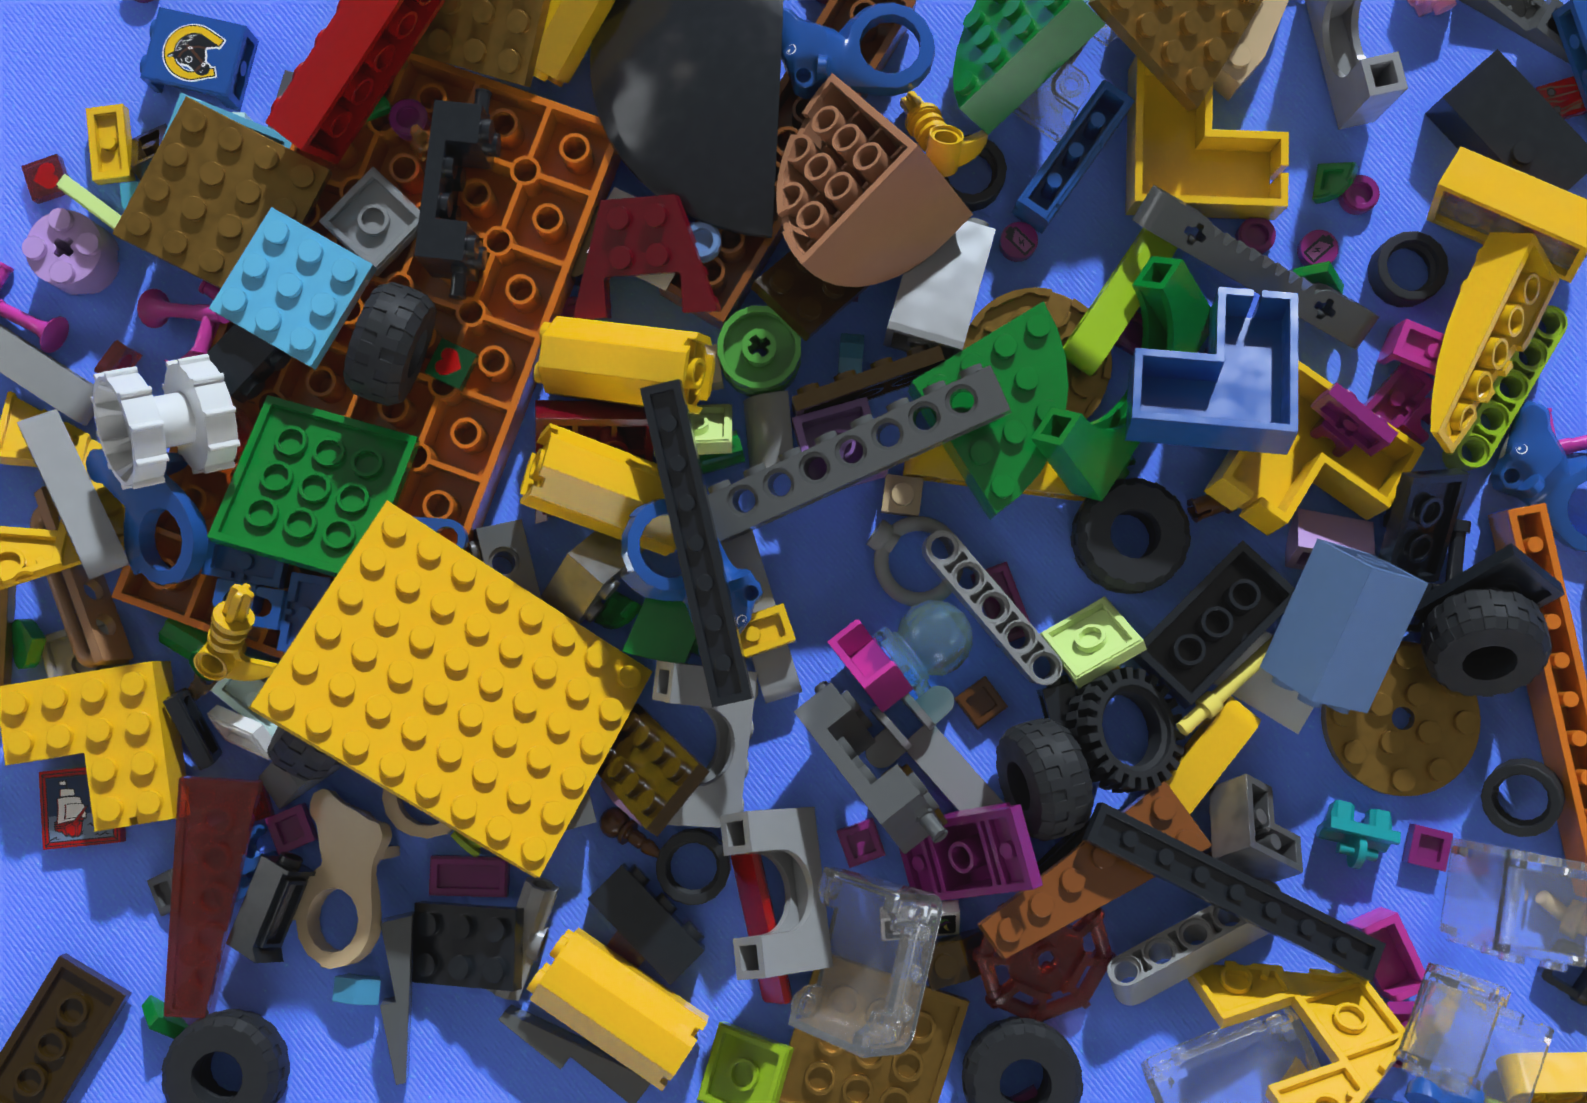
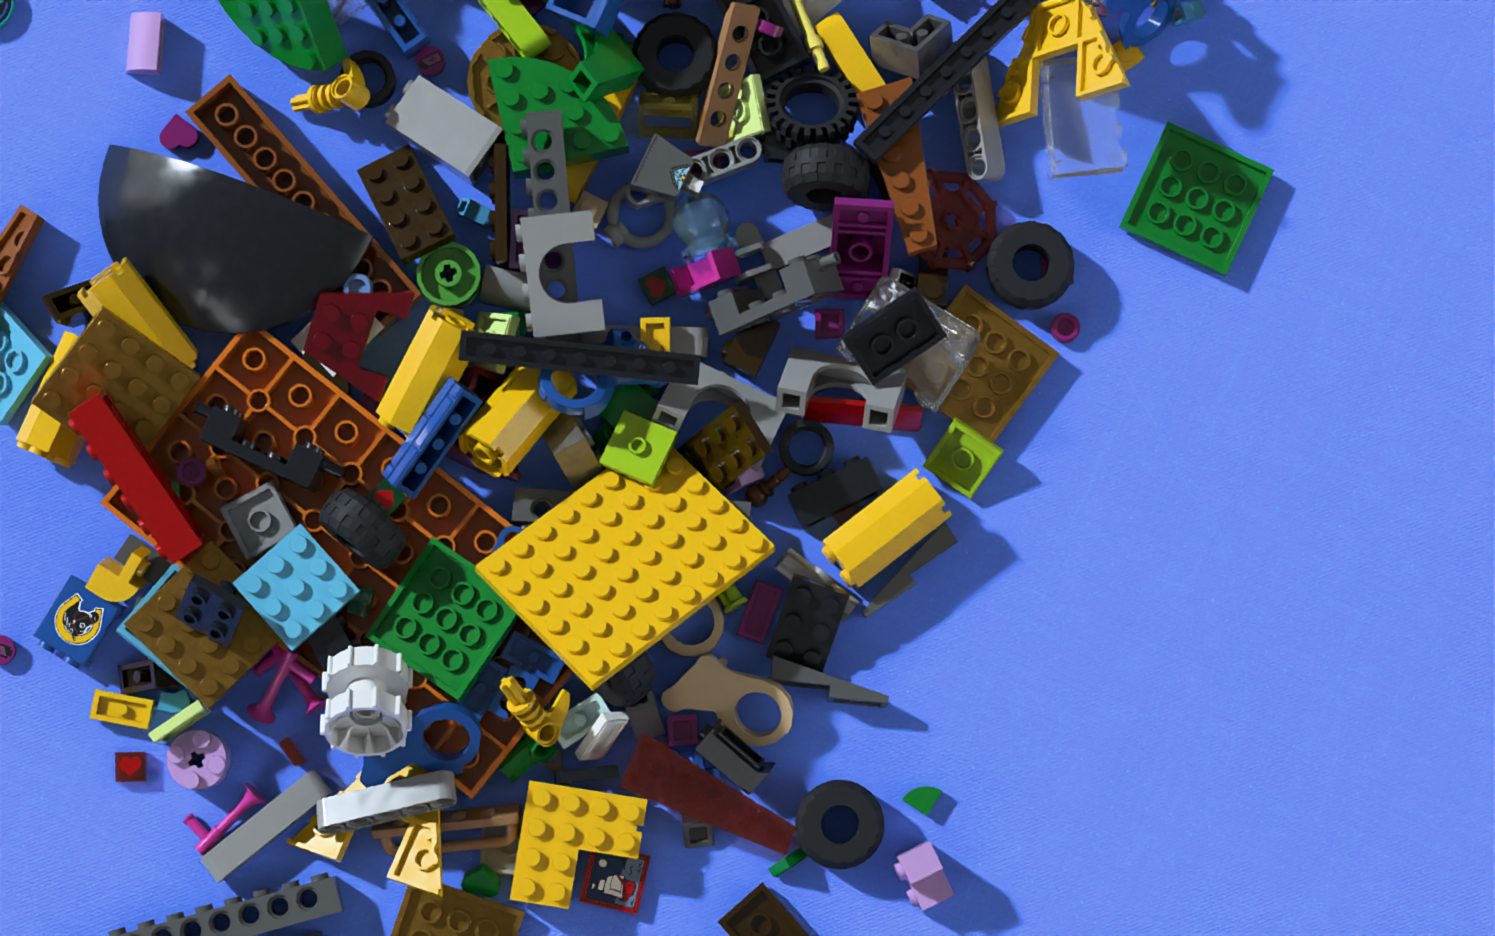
camera: 75 degrees left, 0 degrees up
(227, 191) = (212, 609): none -> black plate
(254, 78) = (119, 582): none -> yellow brick
(306, 379) = (362, 602): none -> clear green piece
(356, 989) = (813, 715): dark azure piece -> none
(537, 392) = (432, 437): none -> blue brick
(615, 657) = (638, 448): none -> lime plate
(743, 483) = (548, 314): none -> light grey arch
(794, 754) = (750, 349): none -> dark brown slope
(816, 51) = (254, 149): blue animal -> none
(835, 610) = (657, 286): none -> dark green tile
(860, 193) = (364, 164): nougat brick -> none
(864, 943) = (893, 336): none -> black plate
(978, 572) = (665, 172): none -> dark grey torso
(980, 702) = (758, 205): reddish brown tile -> none
(1062, 539) = (661, 105): none -> clear yellow tile
(1210, 641) = (769, 28): none -> magenta tile
(1213, 595) = (737, 15): none -> medium nougat piece

